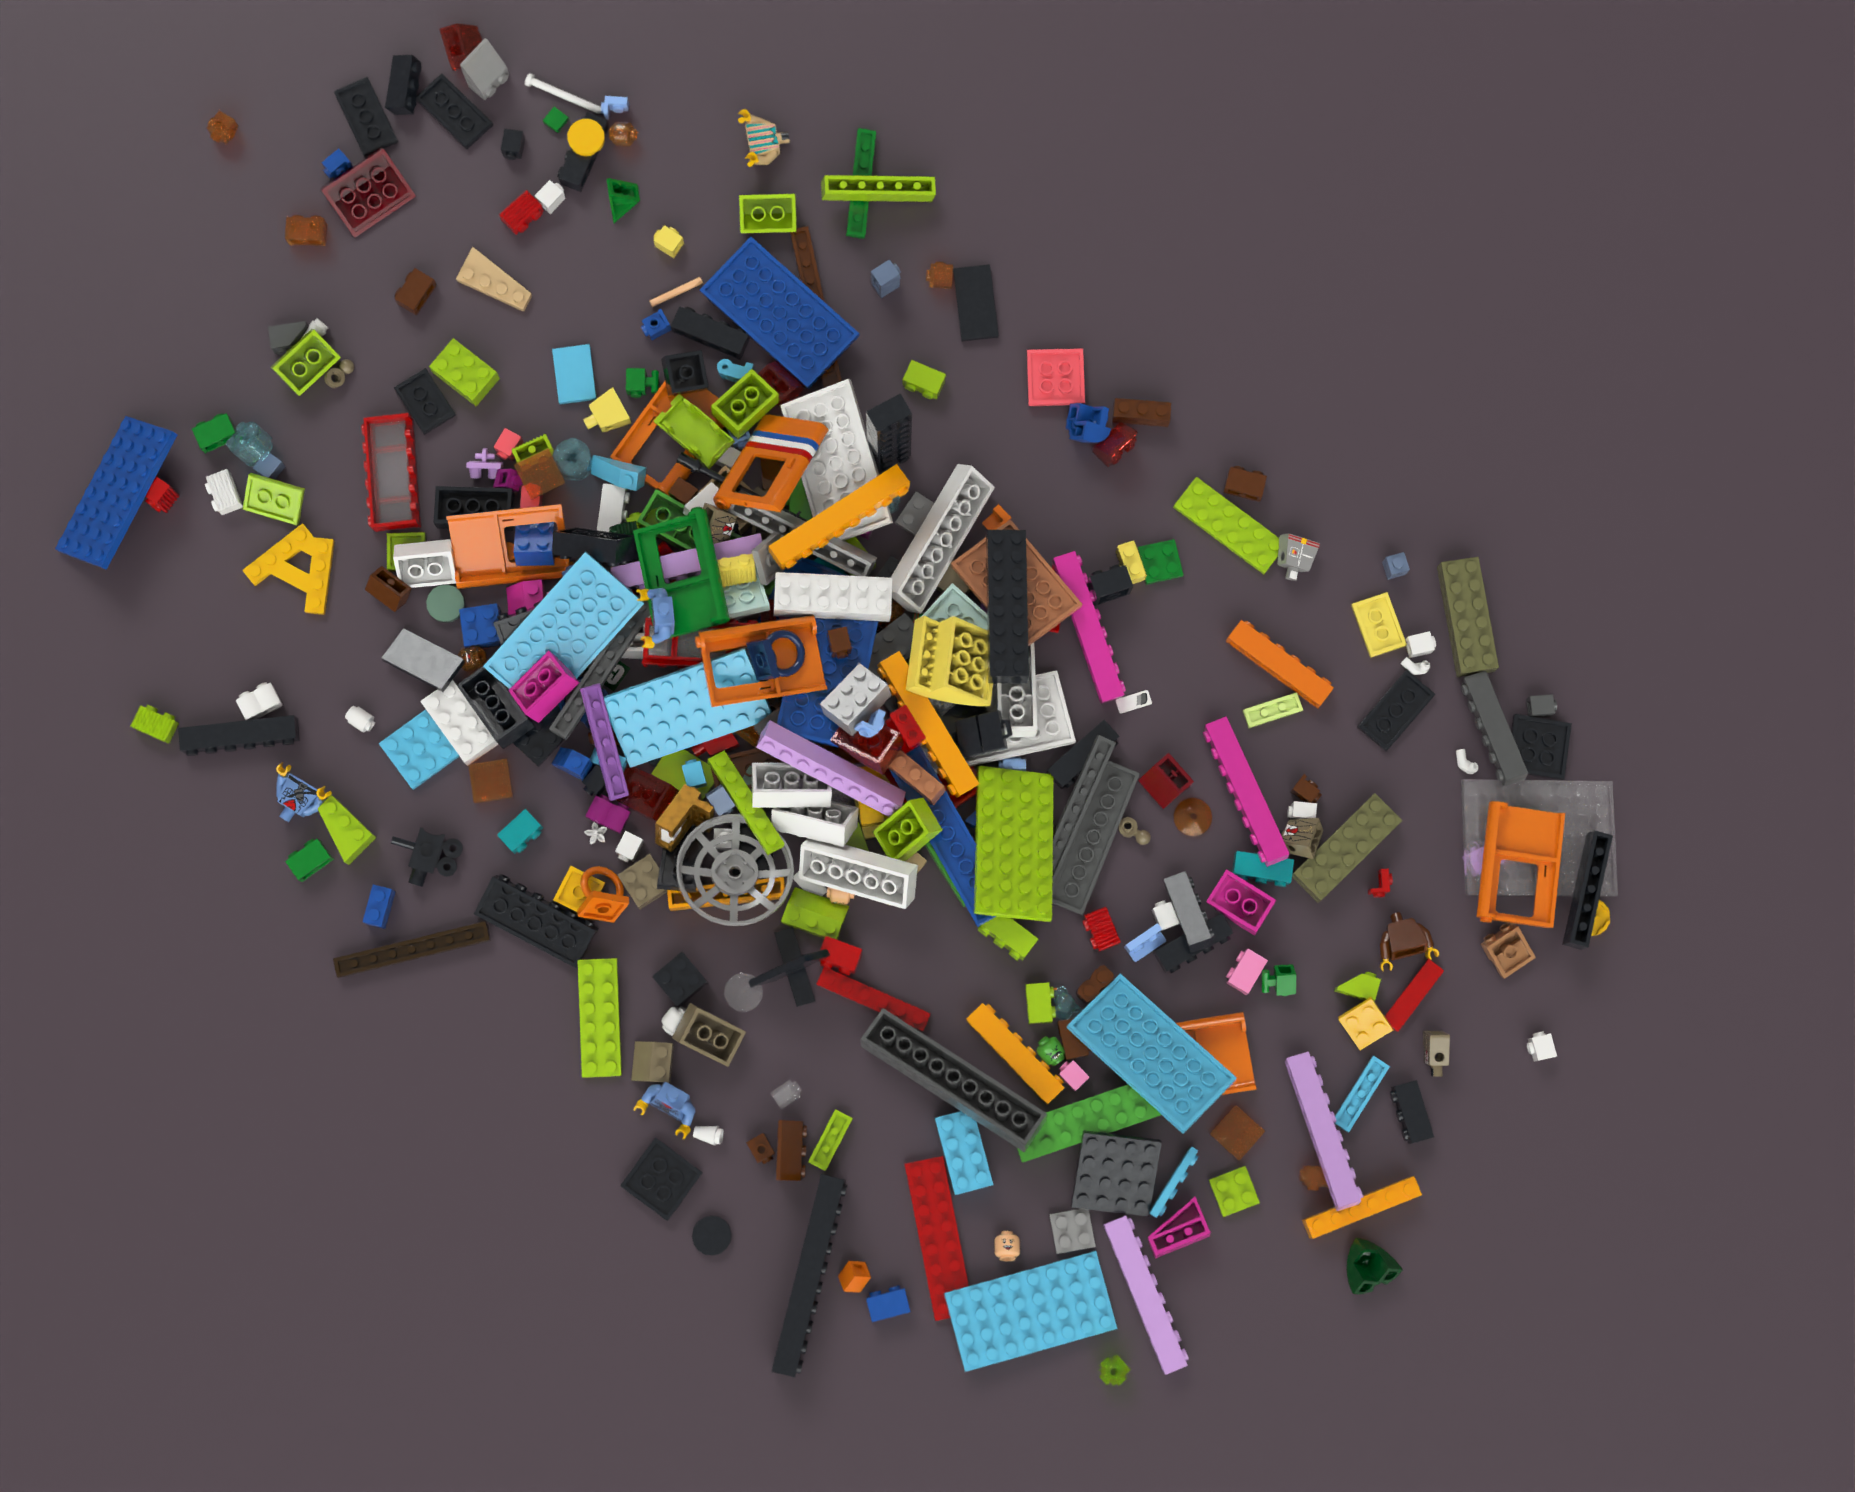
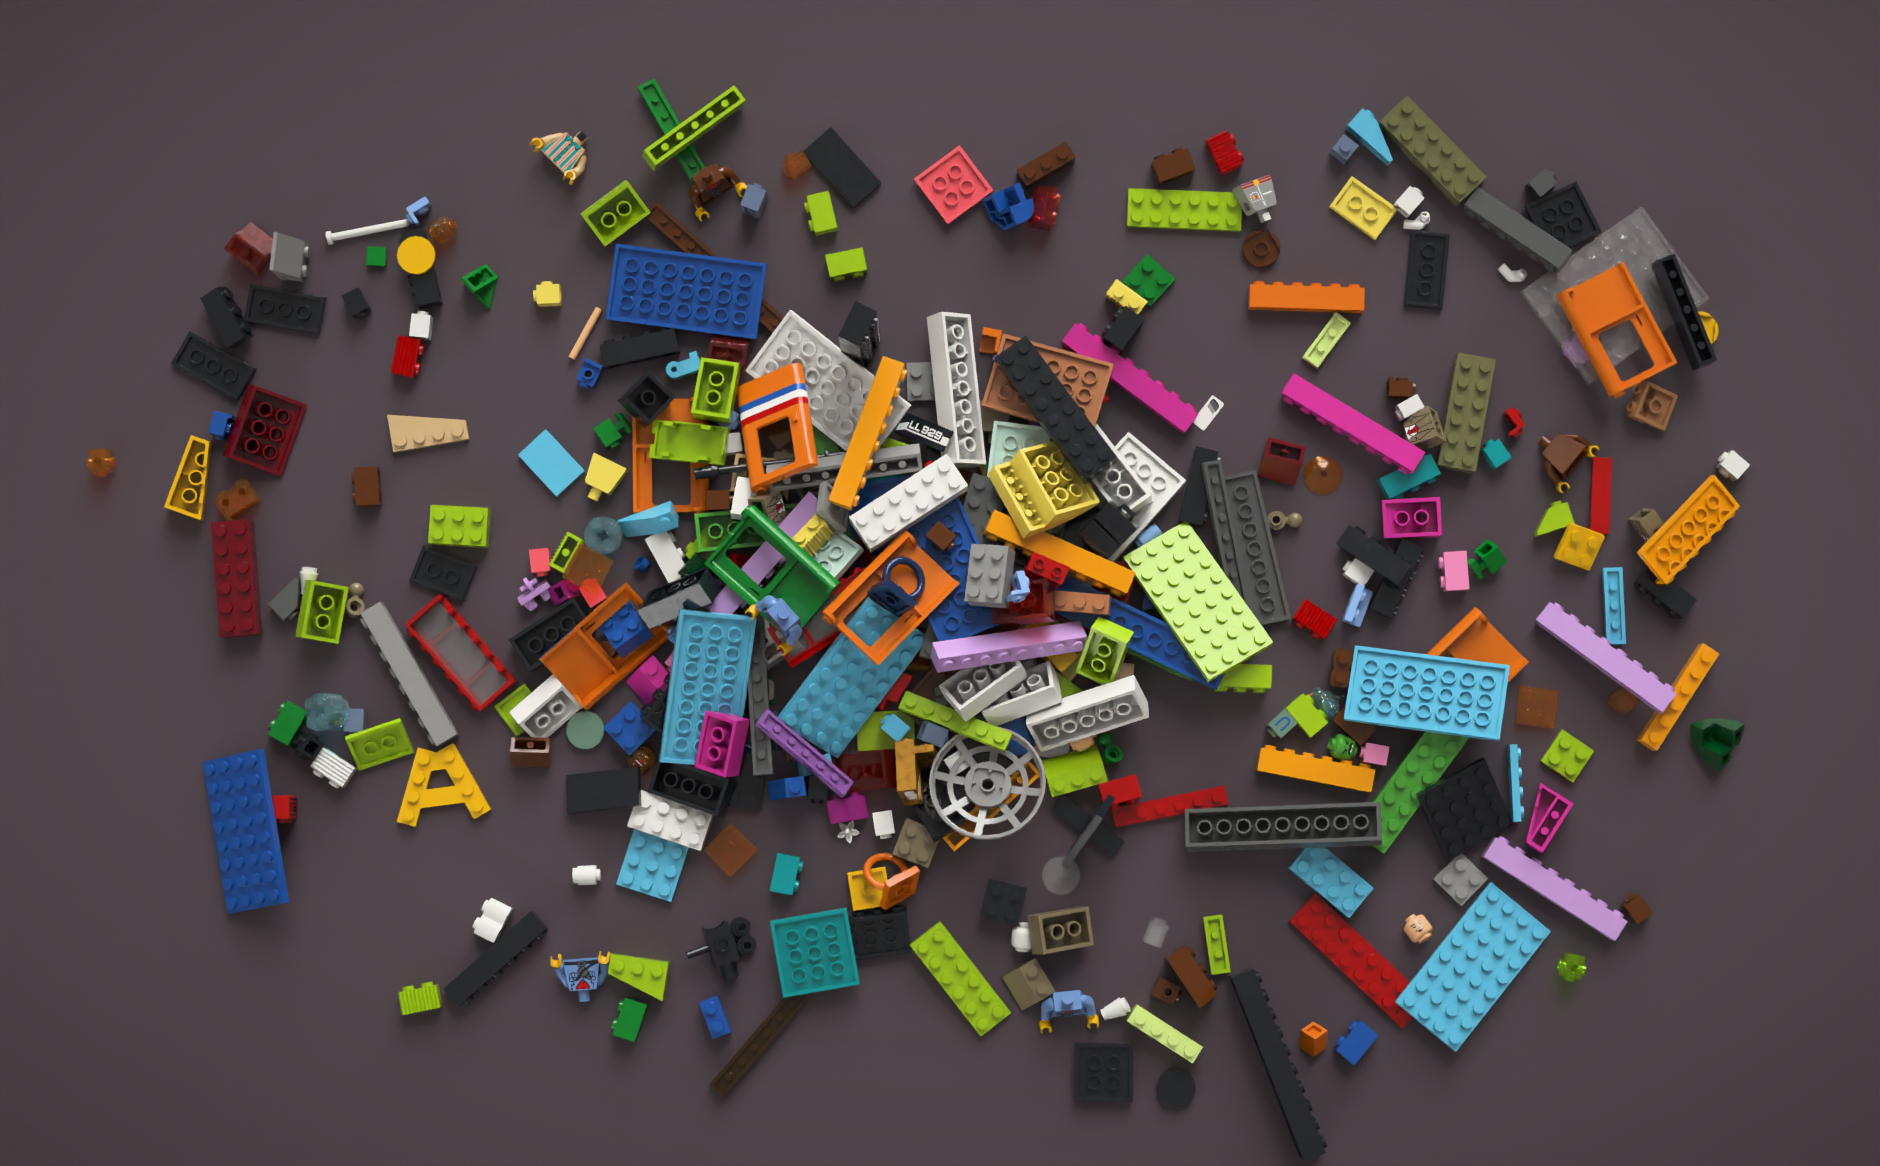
camera: 30 degrees left, 5 degrees up
(219, 465) = (307, 745): none -> black brick
(259, 291) = (236, 578): none -> dark red brick
(281, 190) = (191, 479): none -> yellow wedge
(338, 461) = (409, 673): none -> light grey brick
(496, 910) = (814, 952): none -> teal plate
(587, 503) = (641, 564): none -> blue hinge
(734, 1182) = (1164, 1033): none -> yellowish green brick
(794, 844) = (1018, 726): none -> blue brick
(859, 907) = (1105, 739): none -> green plate
(860, 242) = (710, 184): none -> reddish brown torso
(889, 553) = (924, 431): none -> black sticker
(933, 326) = (821, 212): none -> lime brick
(1013, 996) = (1281, 724): none -> sand green brick
(1203, 1360) = (1636, 908): none -> reddish brown brick
(1271, 599) = (1261, 248): none -> reddish brown tile
(1295, 502) = (1224, 153): none -> red brick
(1348, 898) = (1495, 453): none -> teal brick
(1425, 565) = (1367, 131): none -> medium azure slope
(1466, 1073) = (1688, 530): none -> light orange bracket

